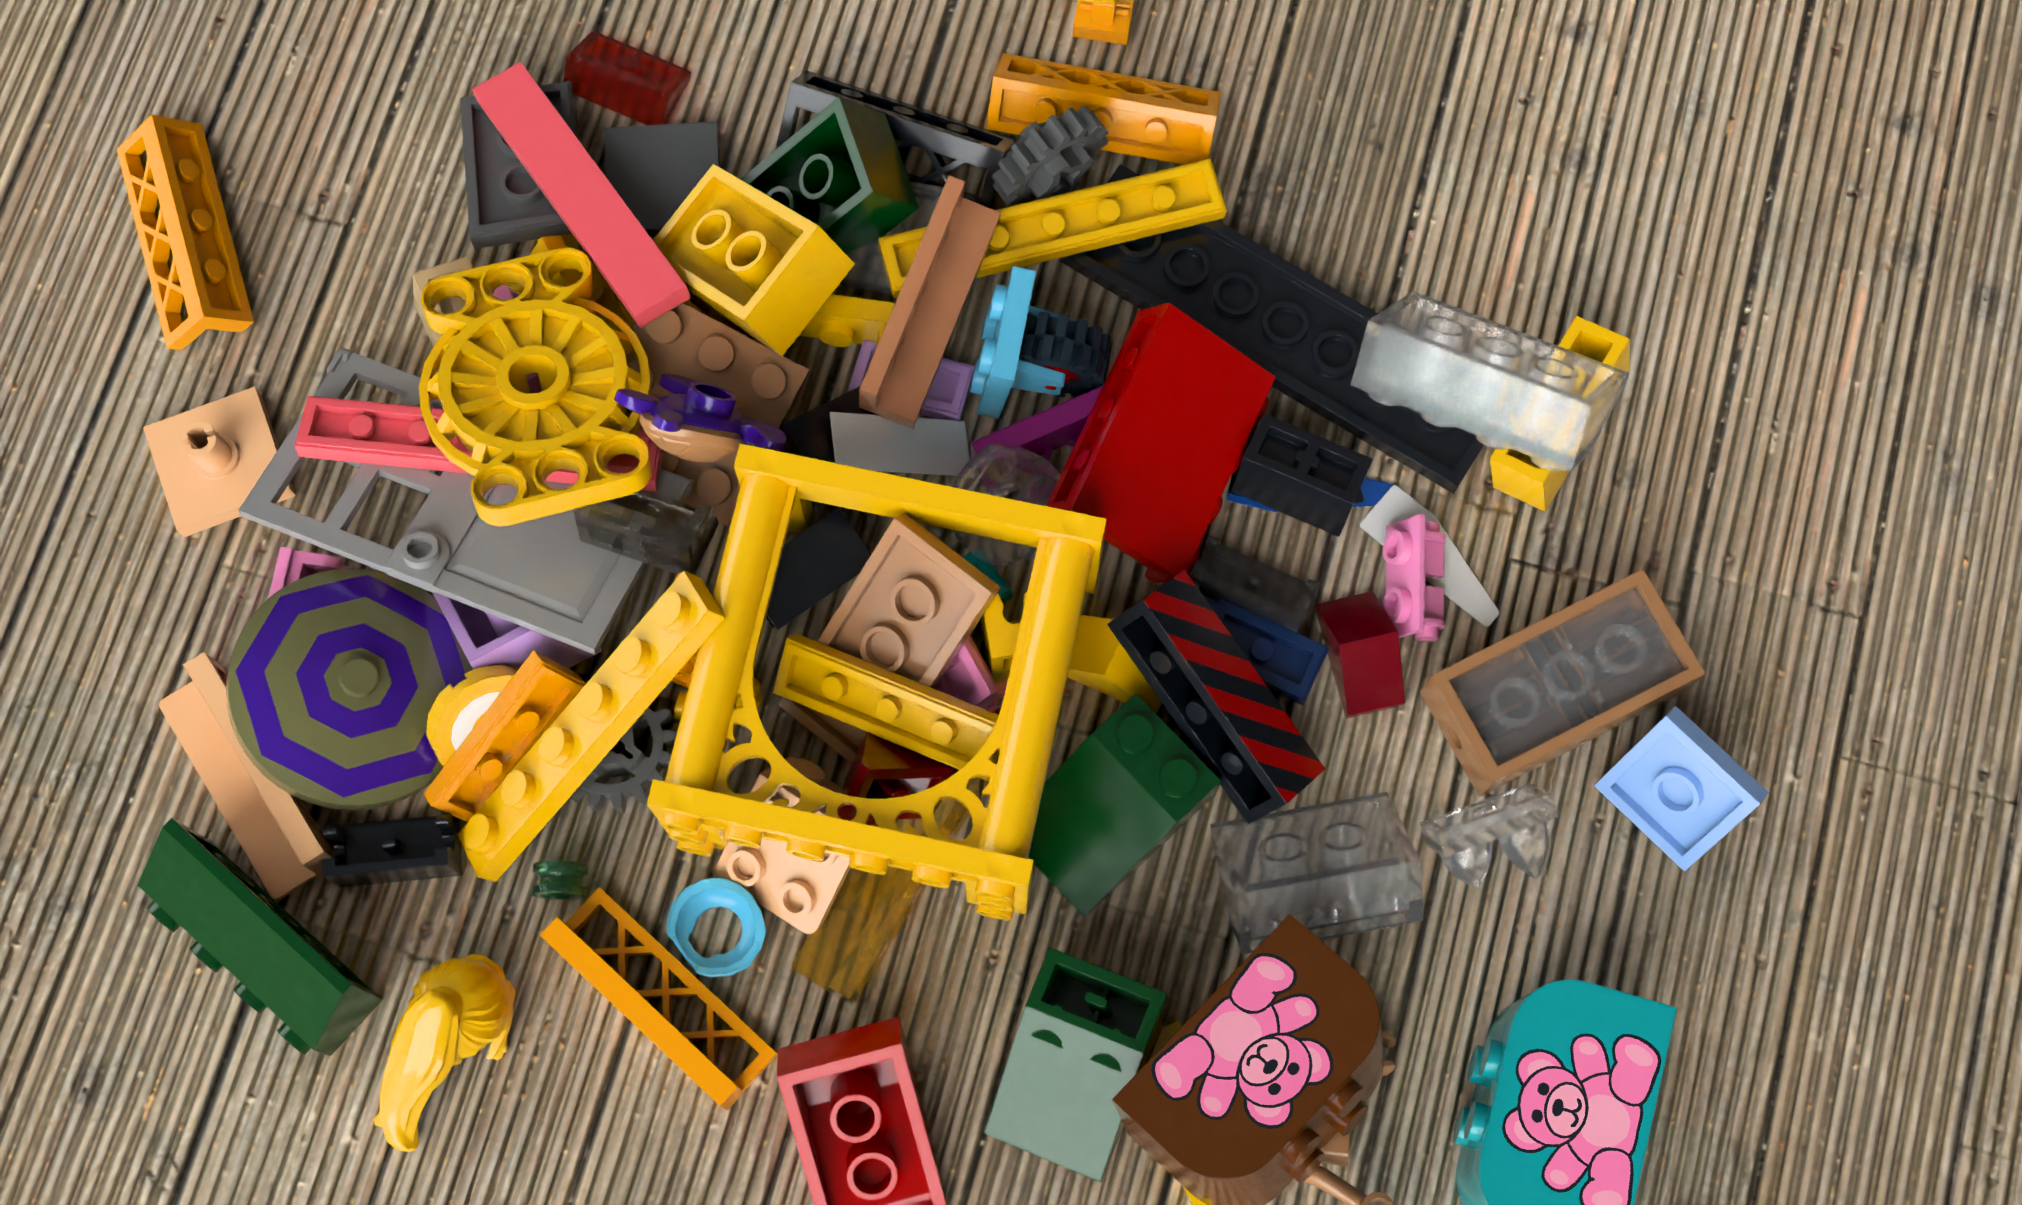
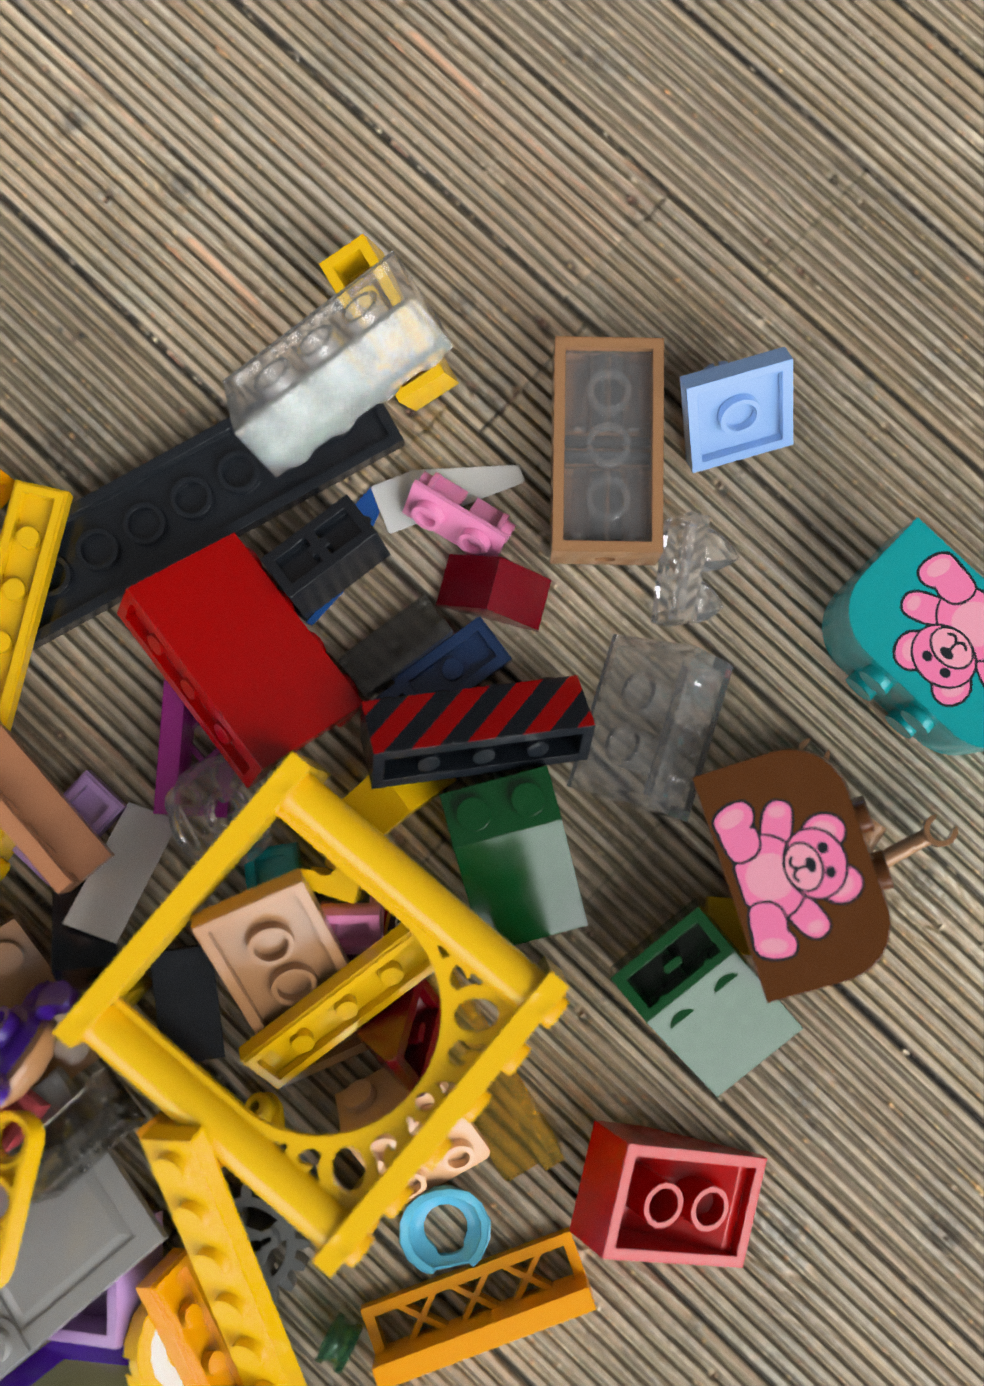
camera: 60 degrees left, 10 degrees up
(1035, 349) = (101, 715): plate -> none

